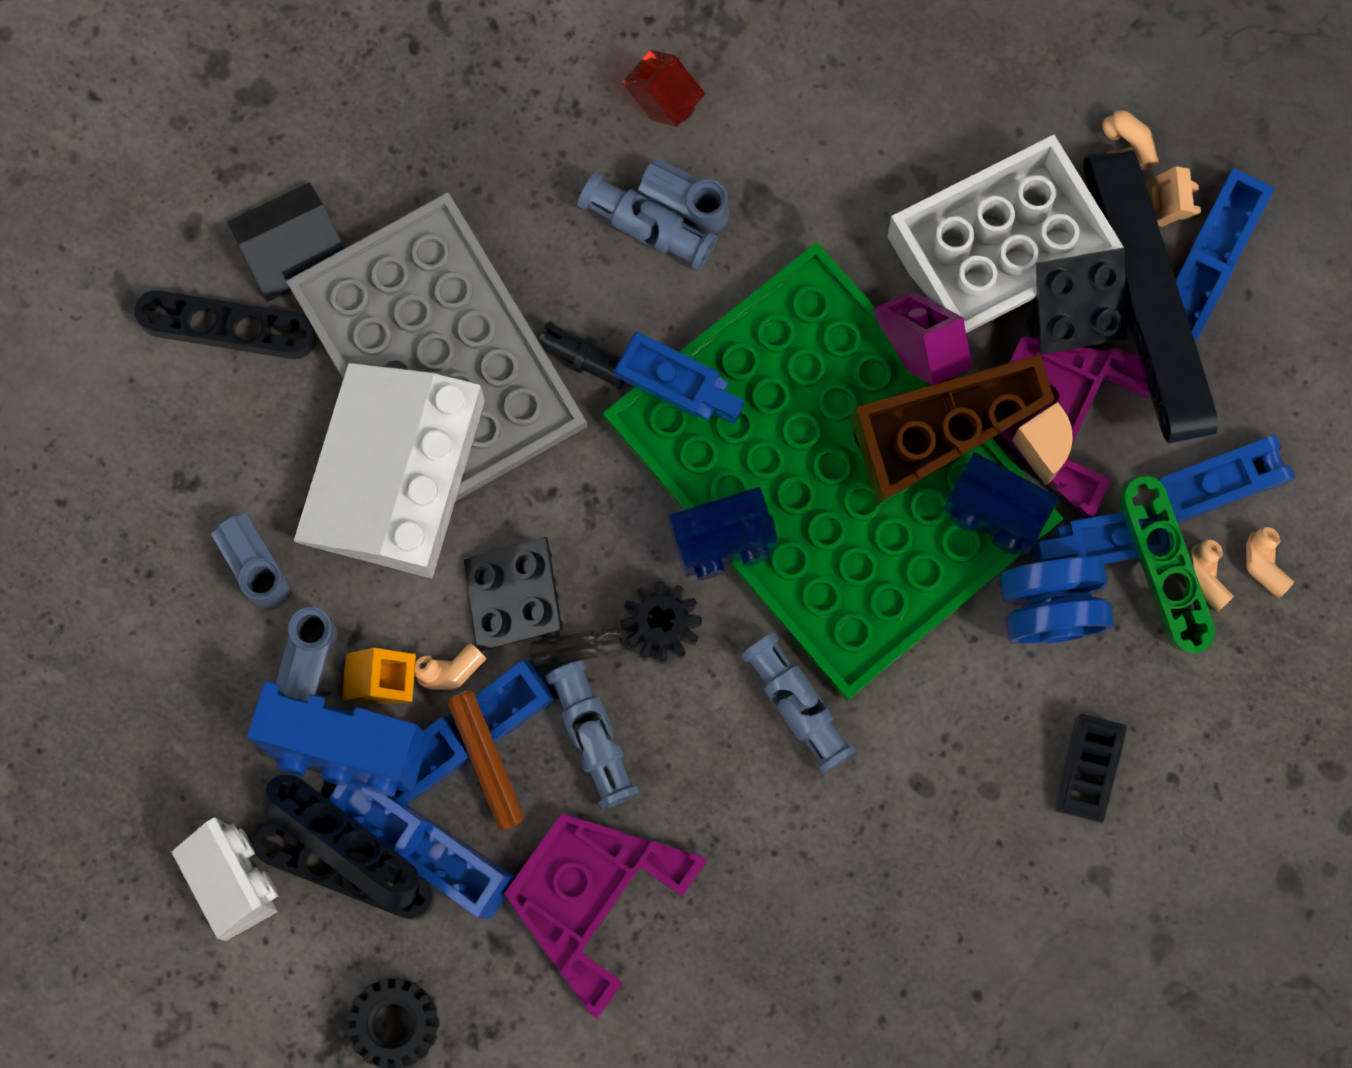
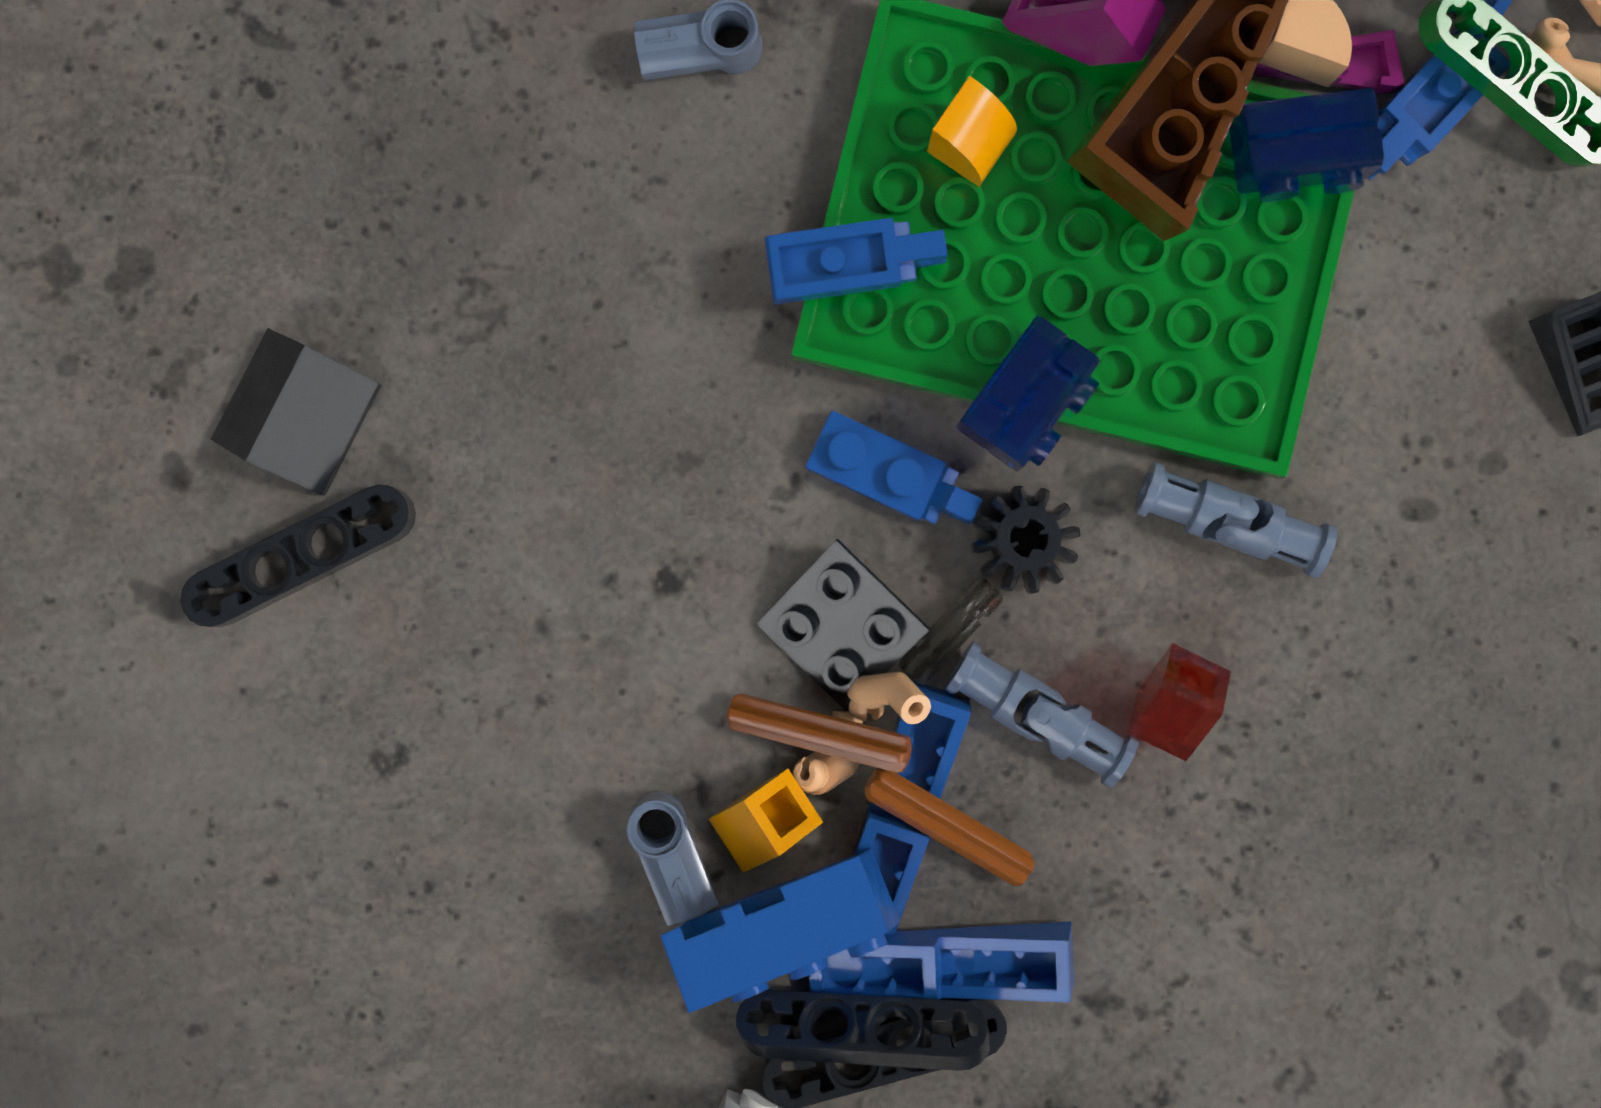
camera: 30 degrees left, 10 degrees up
(250, 561) = (527, 797): sand blue piece -> none
(391, 467) = (606, 585): white slope -> none
(434, 304) = (556, 419): light grey plate -> none
(450, 645) = (819, 732): none -> dark orange axle
(512, 649) = (895, 689): none -> light nougat arm
(574, 886) = (1142, 886): magenta wing -> none
(581, 353) = (715, 304): black pin -> none
(610, 525) = (889, 472): none -> blue hinge
(641, 217) = (642, 106): sand blue piece -> none
(669, 786) = (1178, 715): none -> clear red brick
(804, 357) = (972, 132): none -> light orange brick
(1057, 599) = (1441, 210): blue wheel -> none

